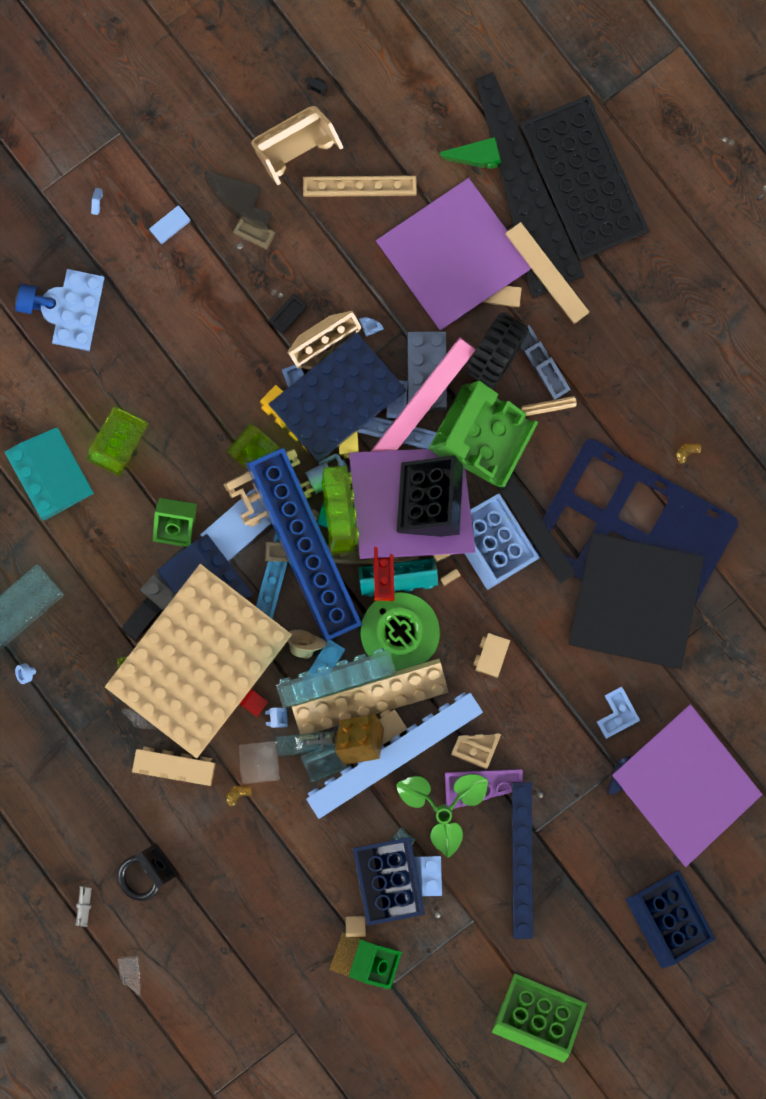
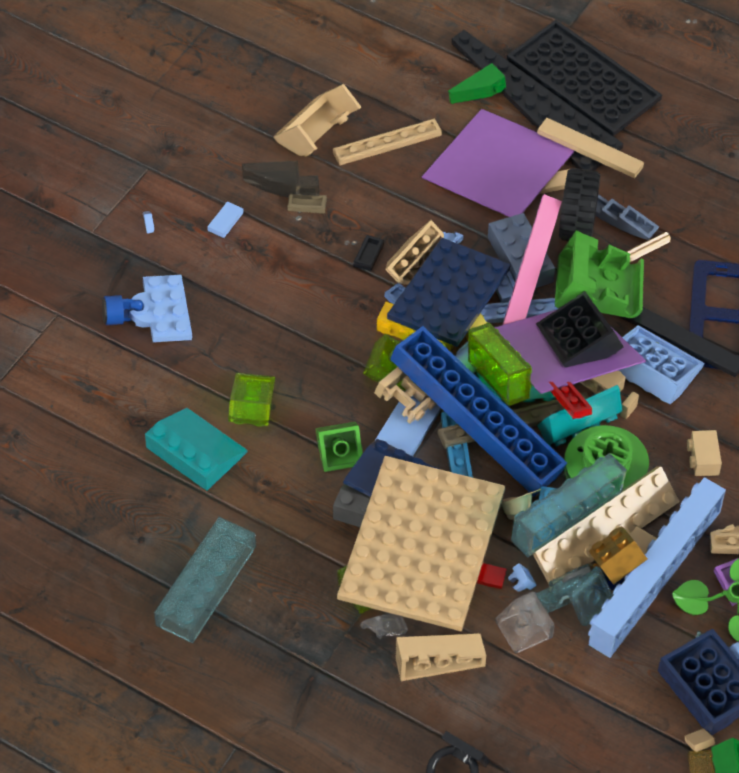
camera: 20 degrees left, 30 degrees down
(24, 673) = (245, 624): light blue tile -> none
(141, 619) = (344, 538): black slope -> none
(237, 791) = (514, 660): clear yellow arm -> none
(317, 85) = (314, 81): black plate -> none

